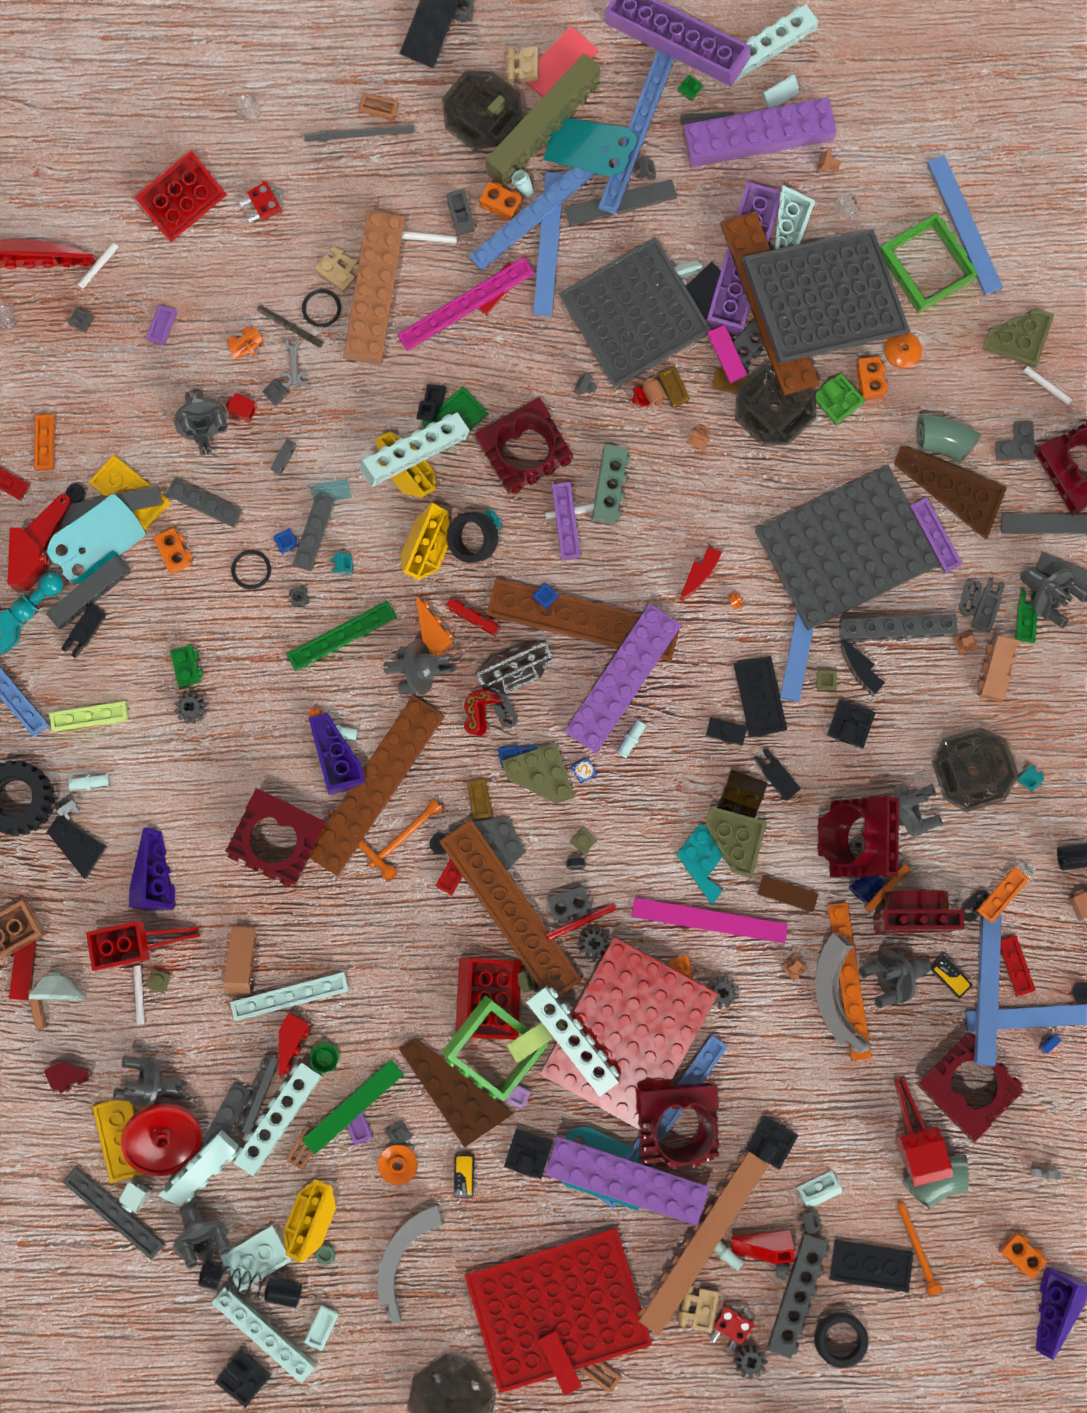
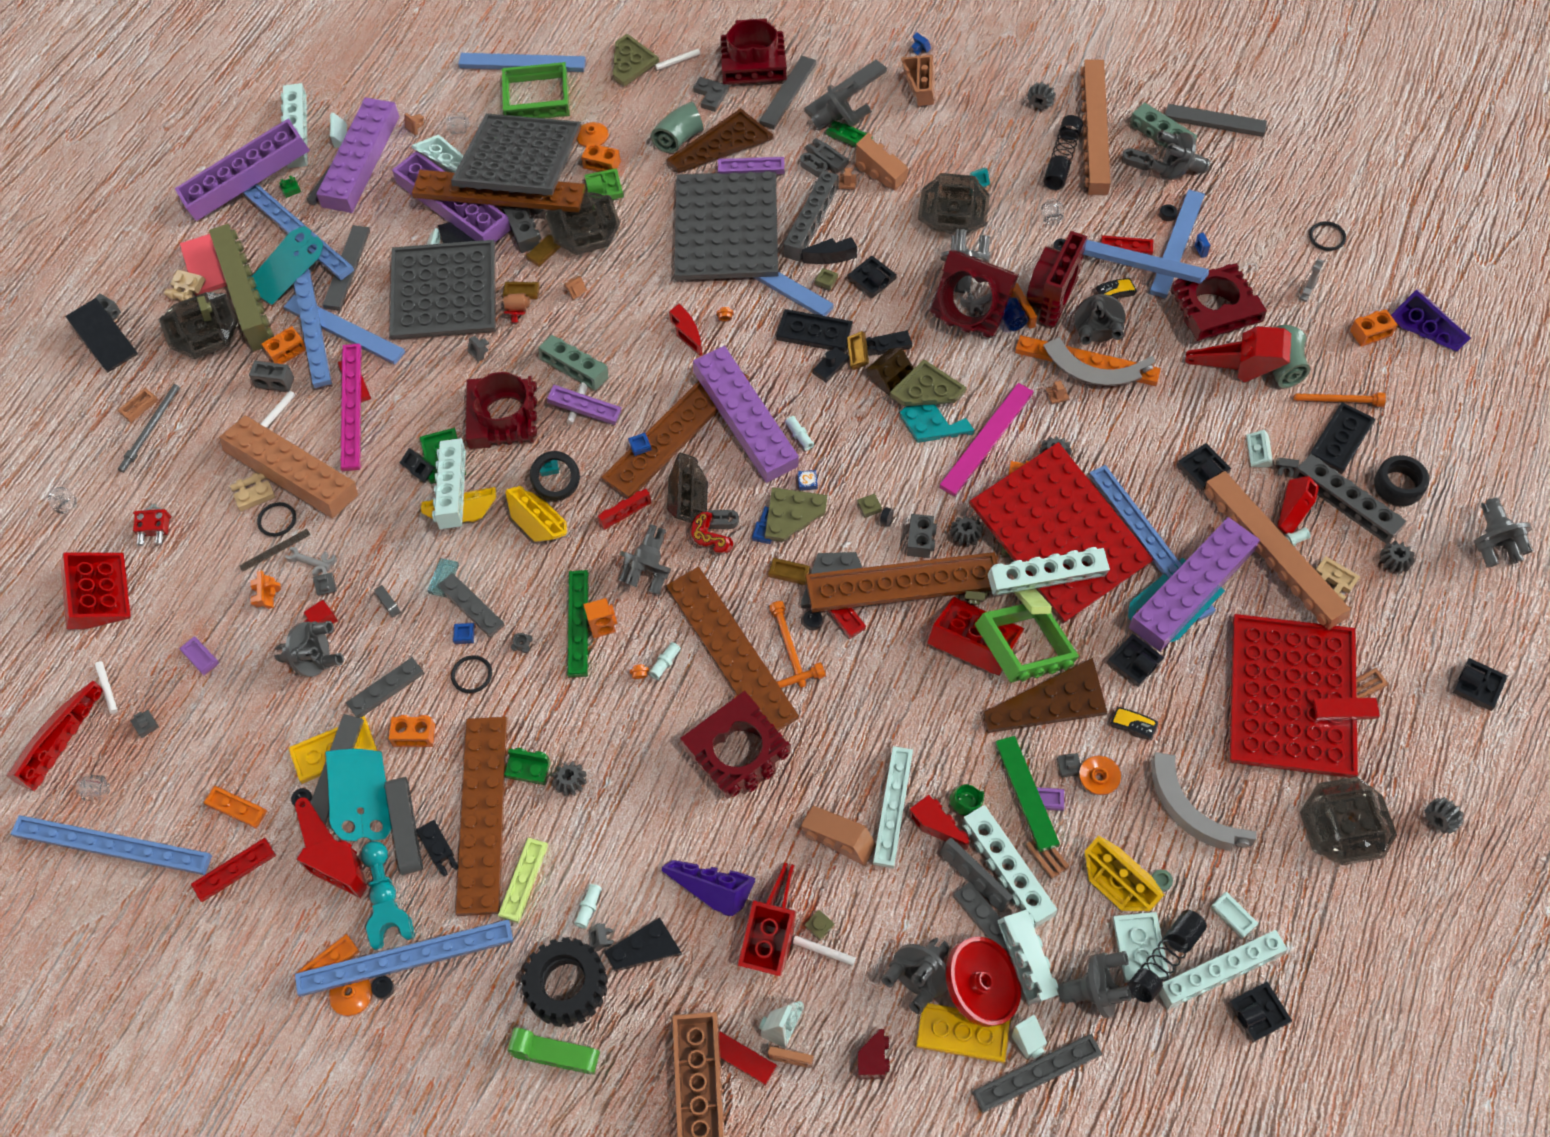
camera: 60 degrees left, 20 degrees down
(129, 651) = (482, 817): none -> dark orange plate
(337, 761) = (694, 669): dark purple wedge -> none
(343, 563) = (513, 591): teal tile -> none
(347, 656) = (600, 617): none -> orange brick
(432, 633) = (612, 543): orange slope -> none
(519, 1096) = (1080, 647): lavender tile -> none
(522, 182) = (279, 321): light aqua cone -> none
(580, 922) = (941, 532): red bar -> none
(646, 168) = (332, 237): dark grey tile -> none
(655, 1101) = (1142, 531): dark red hose -> none
(727, 354) = (519, 236): dark pink tile -> none
(734, 1323) = (1359, 558): red piece -> none
(752, 751) = (858, 350): none -> pearl gold tile
(782, 1270) = (1322, 502): dark grey plate -> none
(787, 894) = (992, 374): reddish brown tile -> none
(1002, 894) = (1062, 219): orange tile -> none

